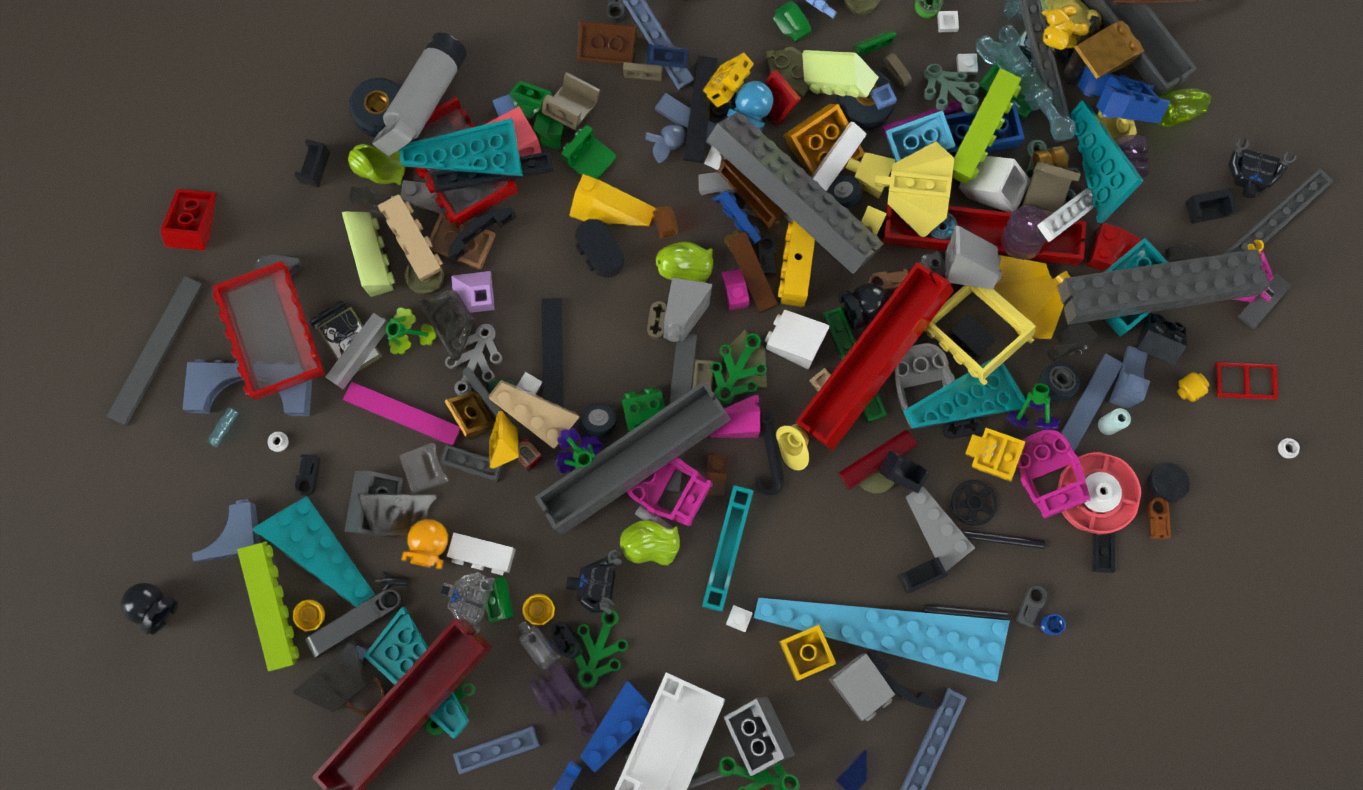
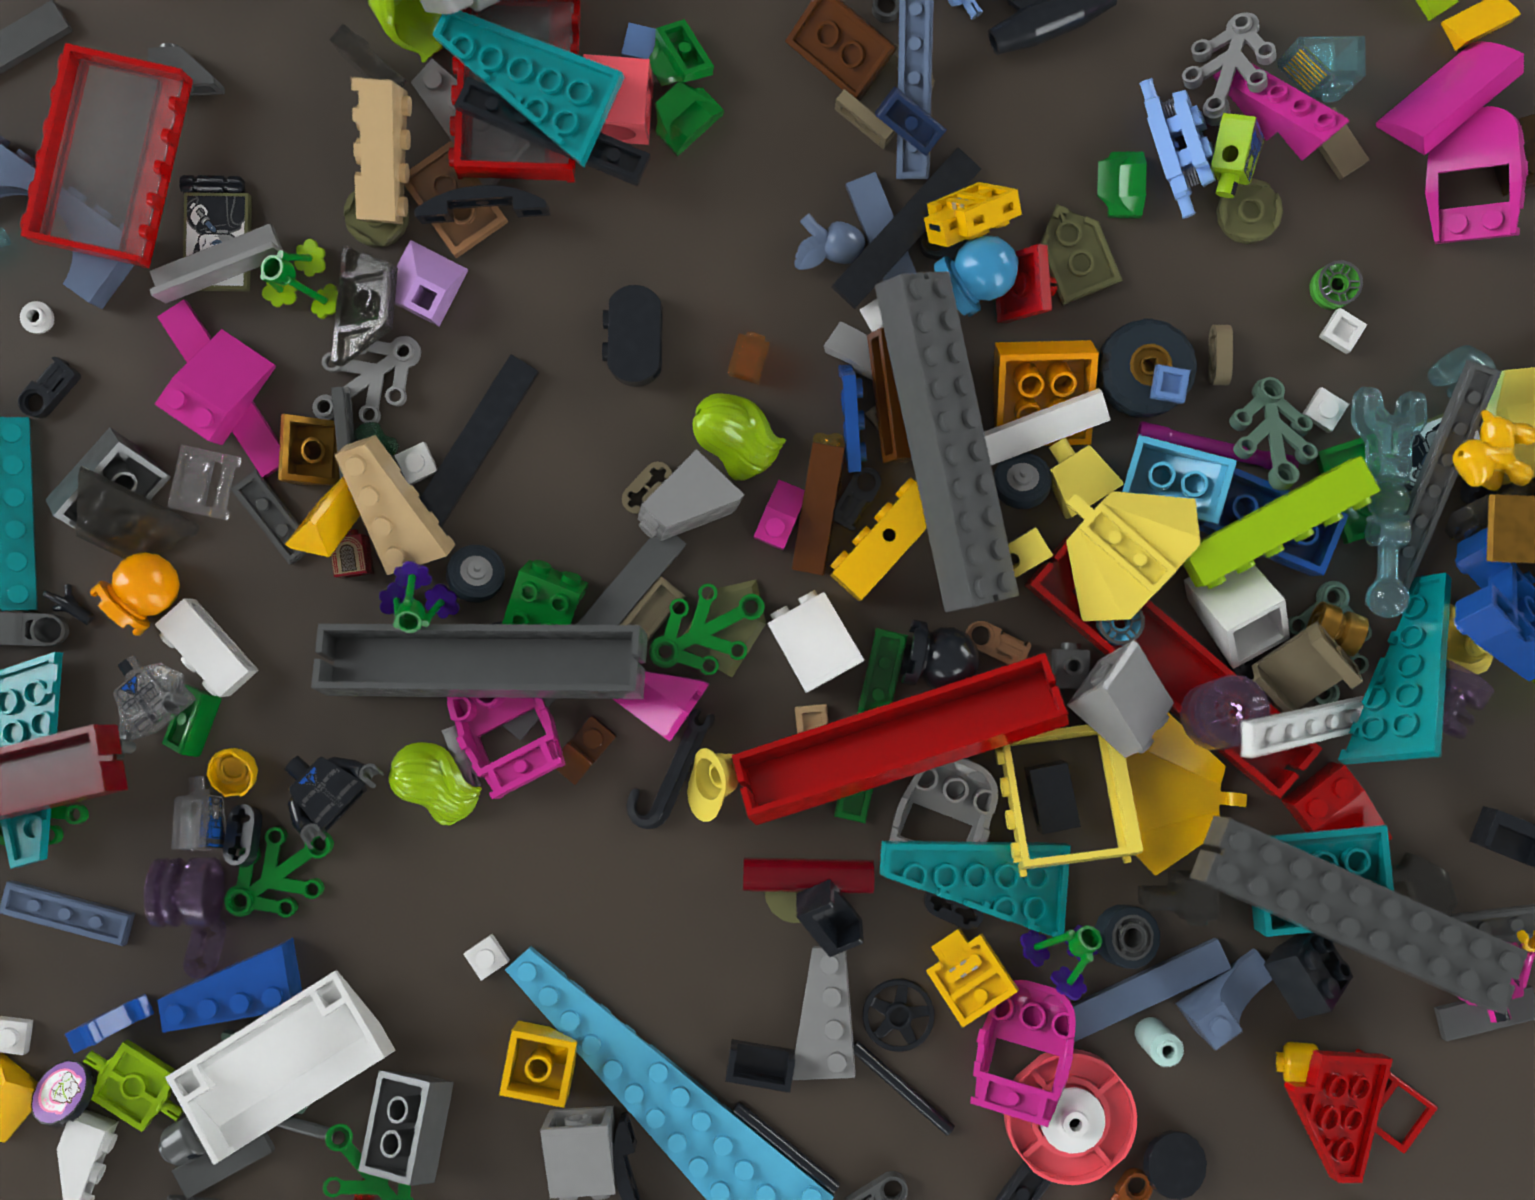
camera: 30 degrees right, 10 degrees up
(368, 252) = (314, 132): yellowish green slope -> none
(399, 413) = (216, 387): none -> dark pink slope
(571, 101) = (733, 99): dark tan panel -> none
(587, 154) = (707, 191): green bracket -> none
(603, 202) = (683, 278): yellow wedge -> none
(727, 548) = (528, 861): teal arch -> none
(837, 73) = (1126, 311): yellowish green slope -> none
(875, 42) = (1218, 292): green slope -> none
(1229, 394) = (1342, 1108): none -> red wing

